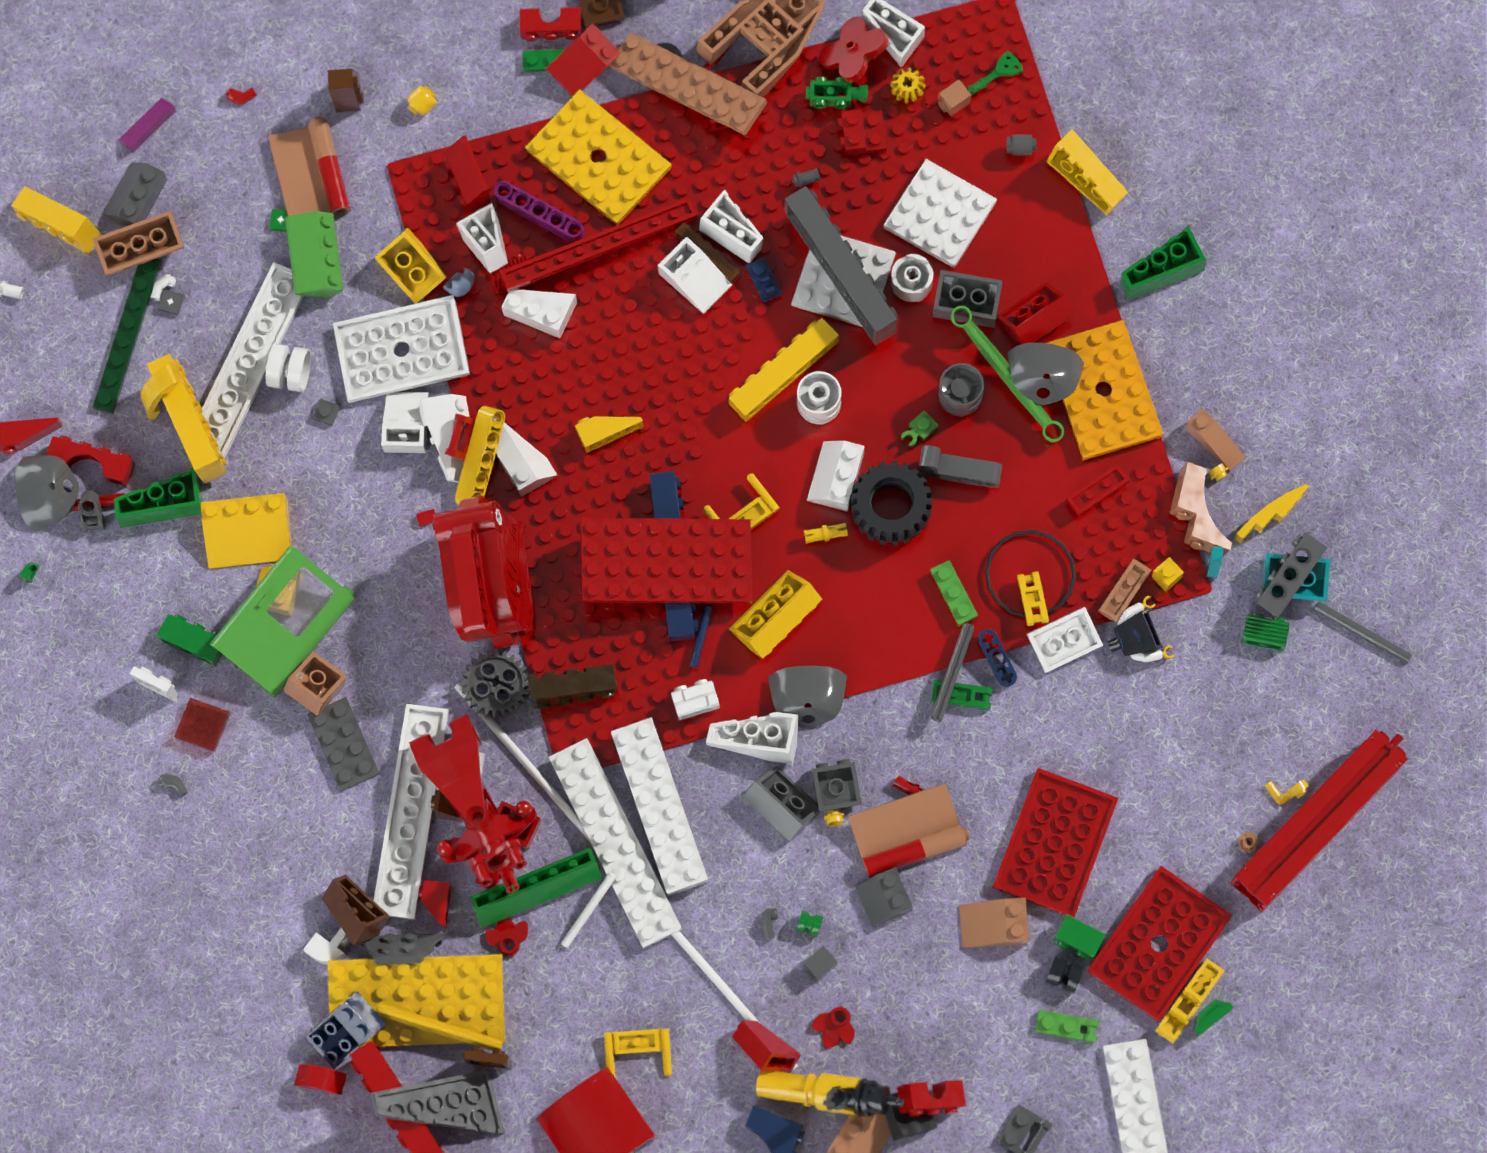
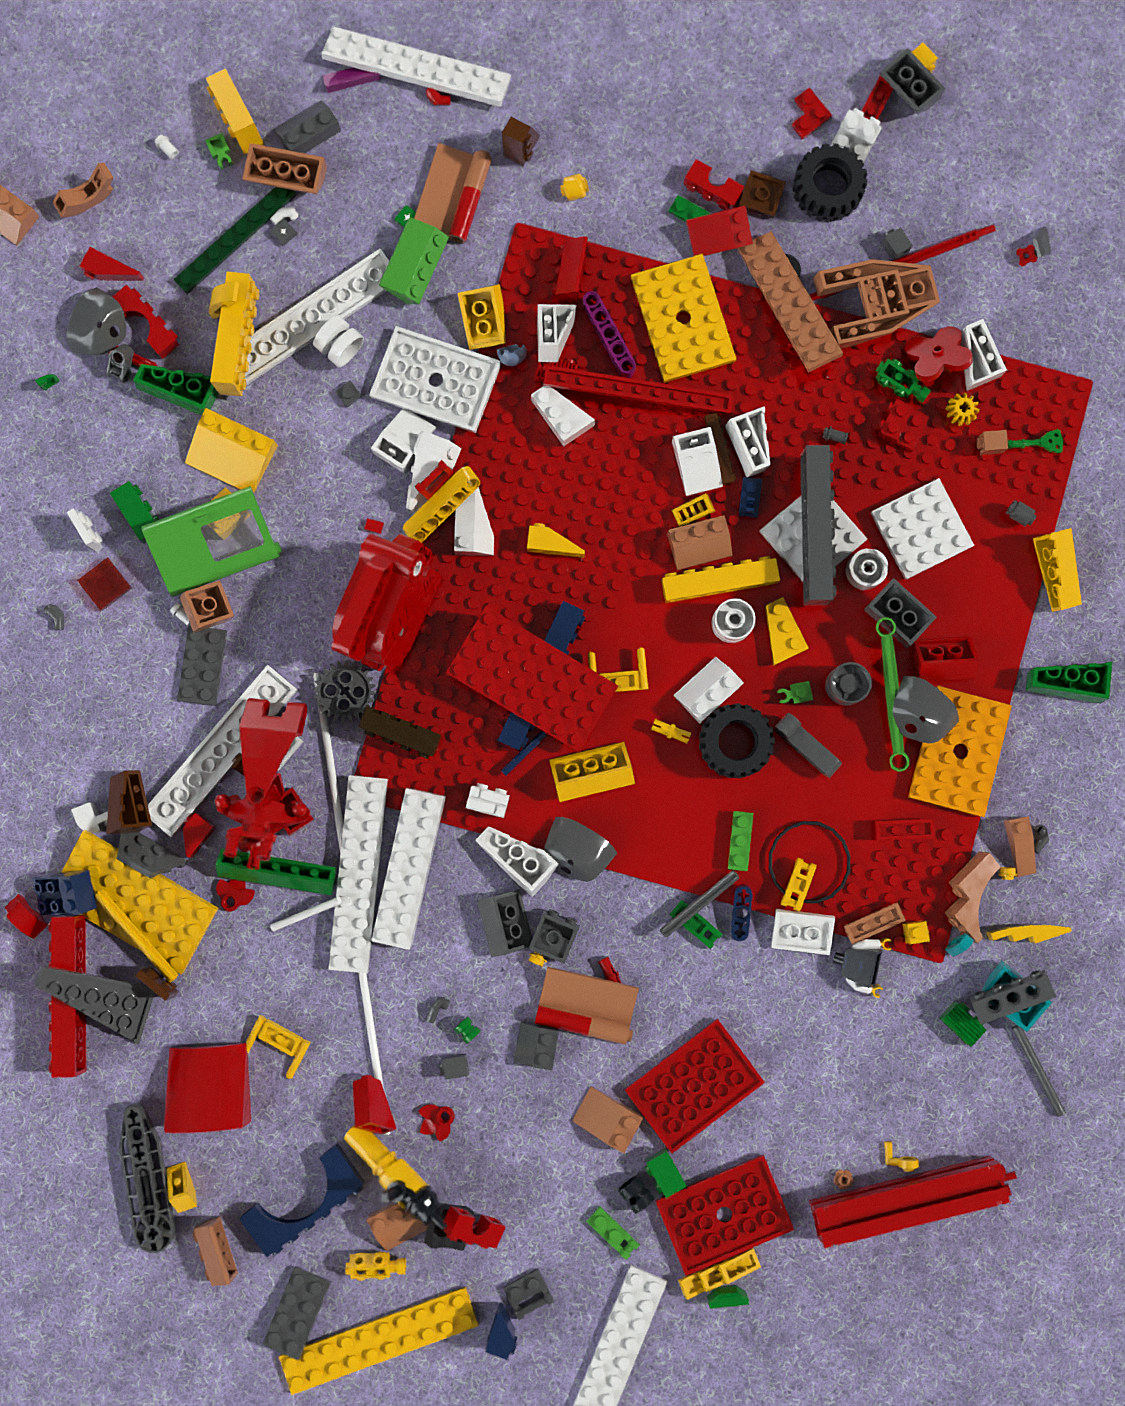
camera: 25 degrees right, 10 degrees up
(61, 262) = (219, 149): none -> bright green plate
(203, 79) = (416, 66): none -> white plate
(293, 708) = (178, 611): none -> white pin
(721, 305) = (710, 509): none -> yellow slope
(743, 347) = (700, 542): none -> nougat slope
(873, 381) = (784, 633): none -> yellow wing
(1228, 422) = (1041, 838): none -> dark grey arm

